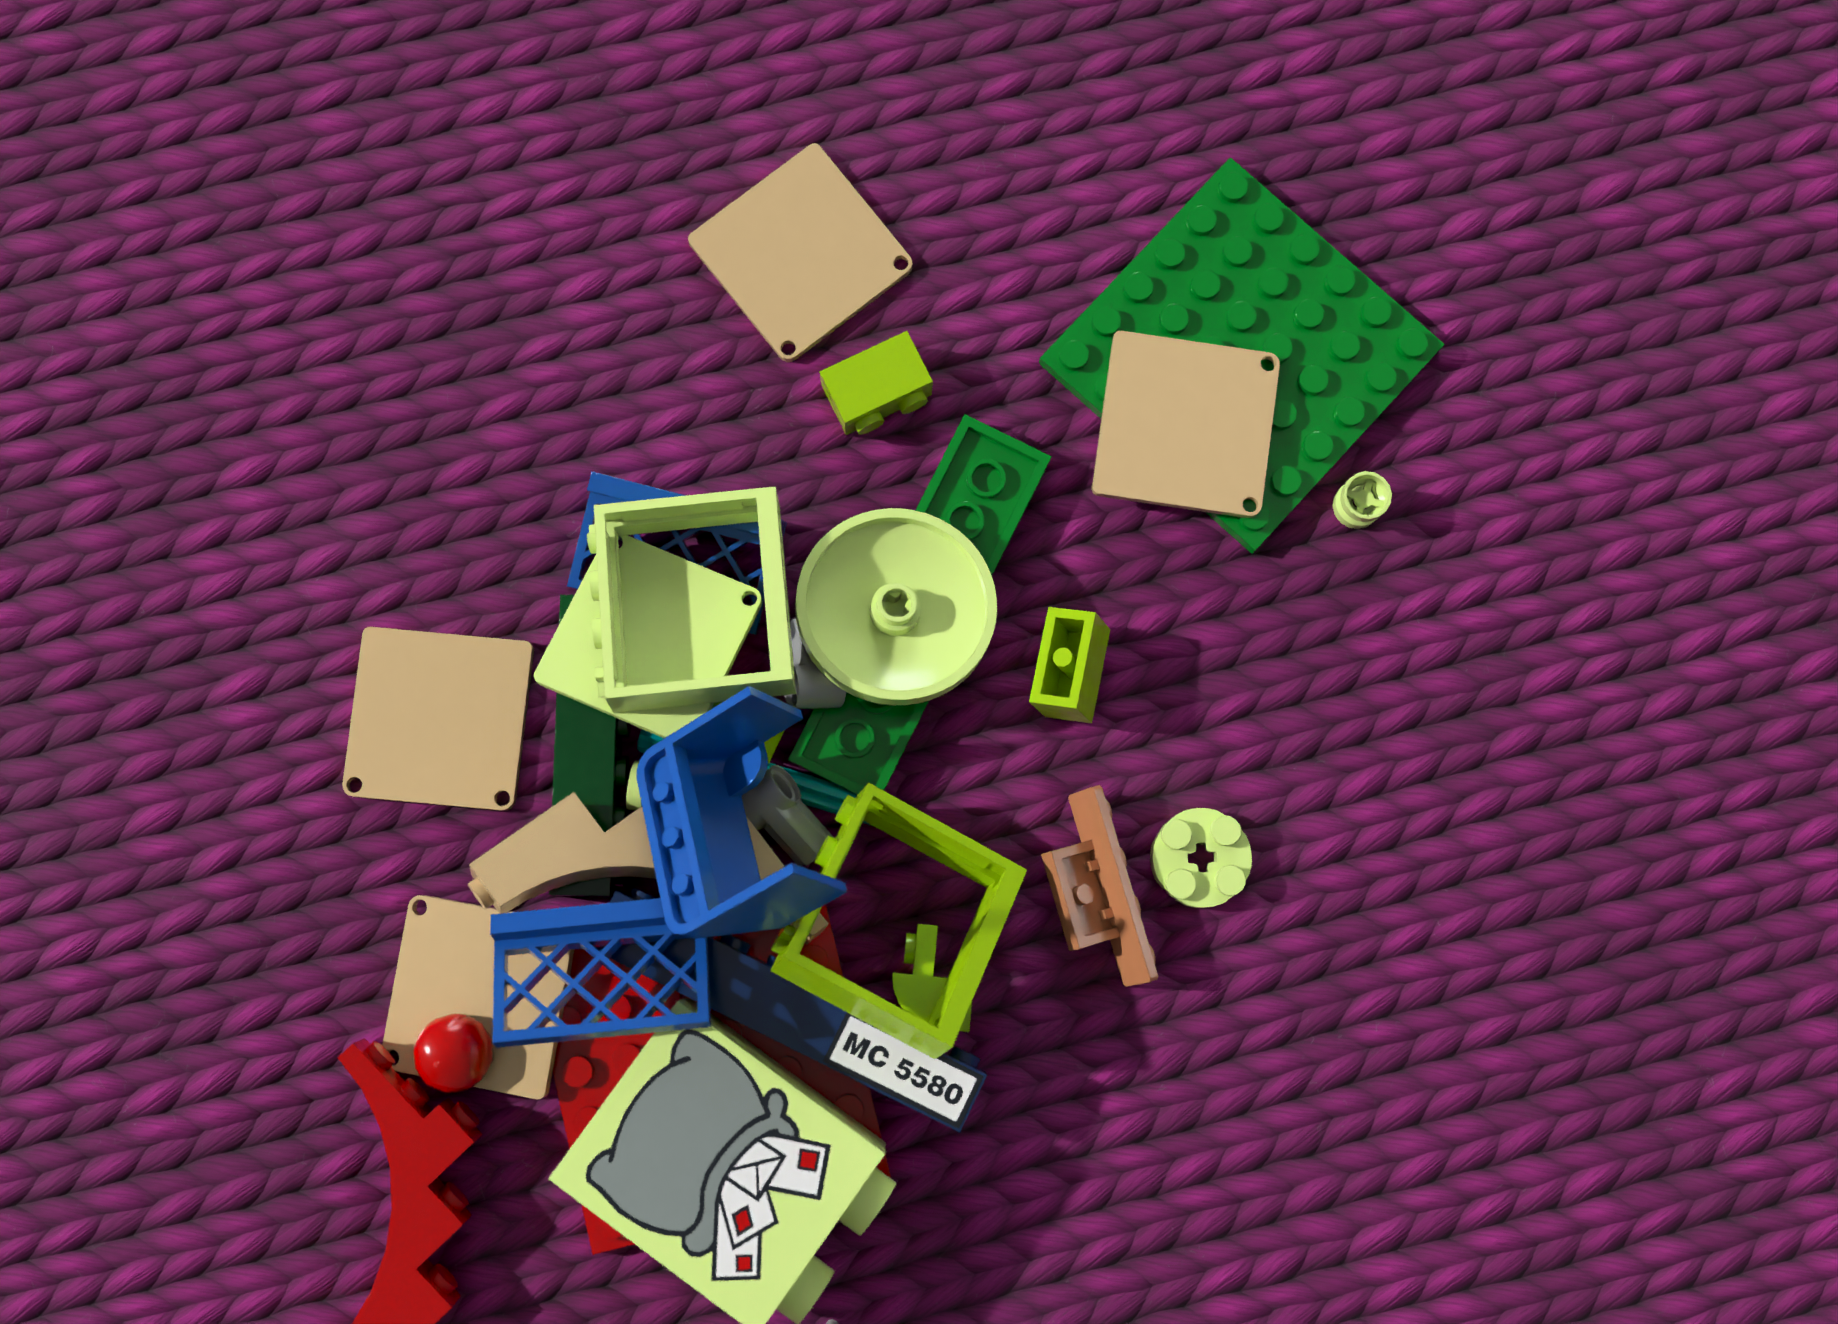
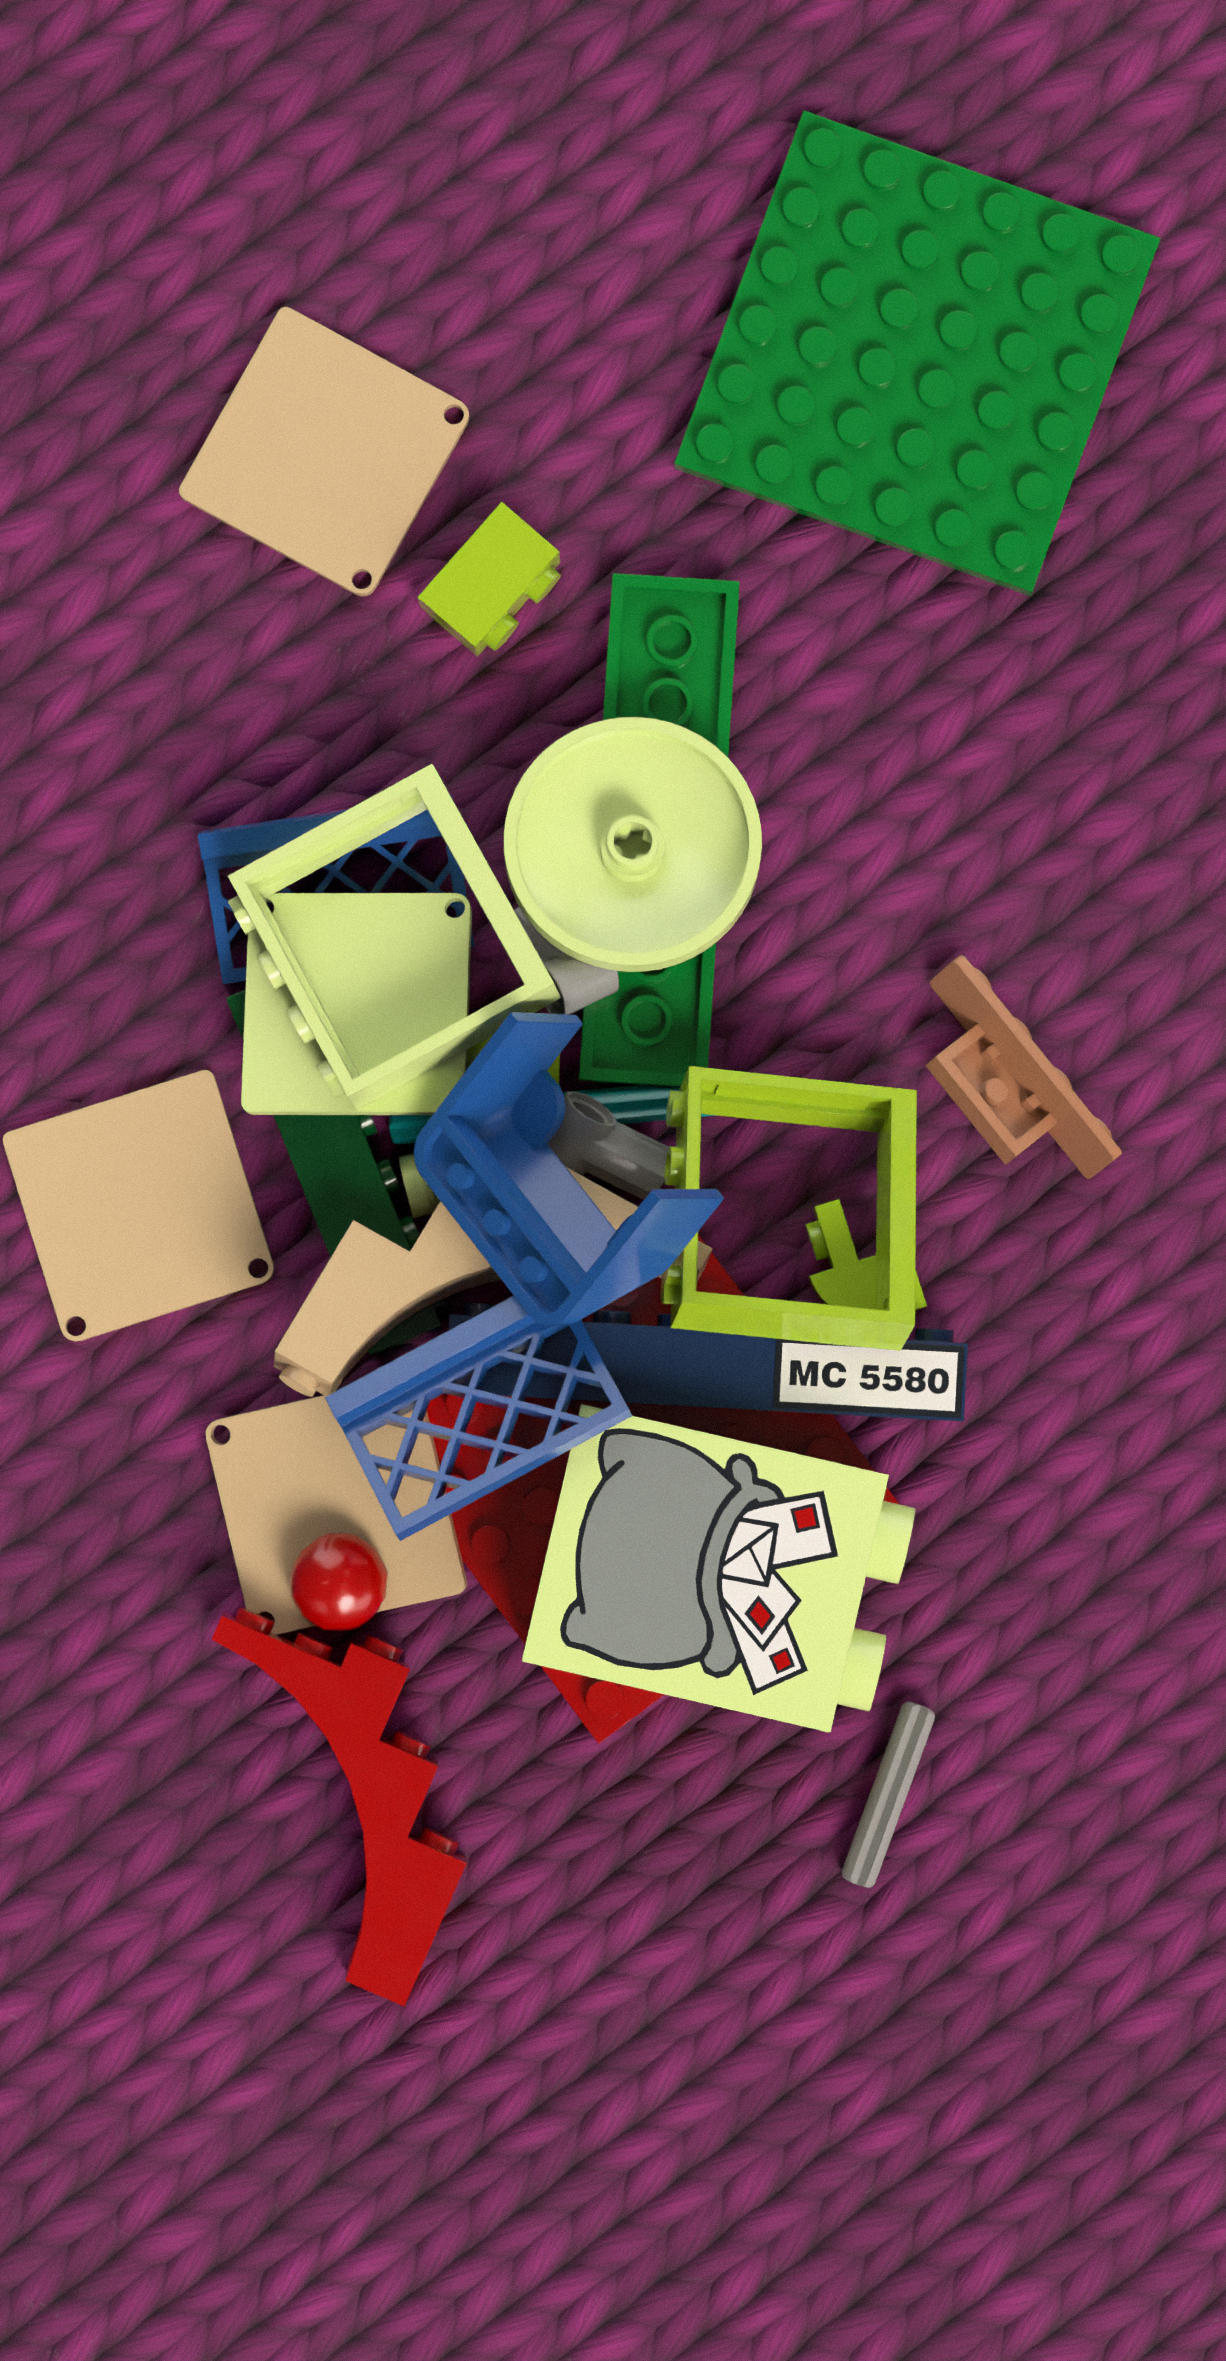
camera: 10 degrees left, 5 degrees up
(1069, 664) = (866, 826): lime brick -> none
(1182, 879) = (1129, 955): yellowish green plate -> none
(1185, 424) = (885, 474): tan piece -> none
(1368, 491) = (1139, 465): yellowish green wheel -> none

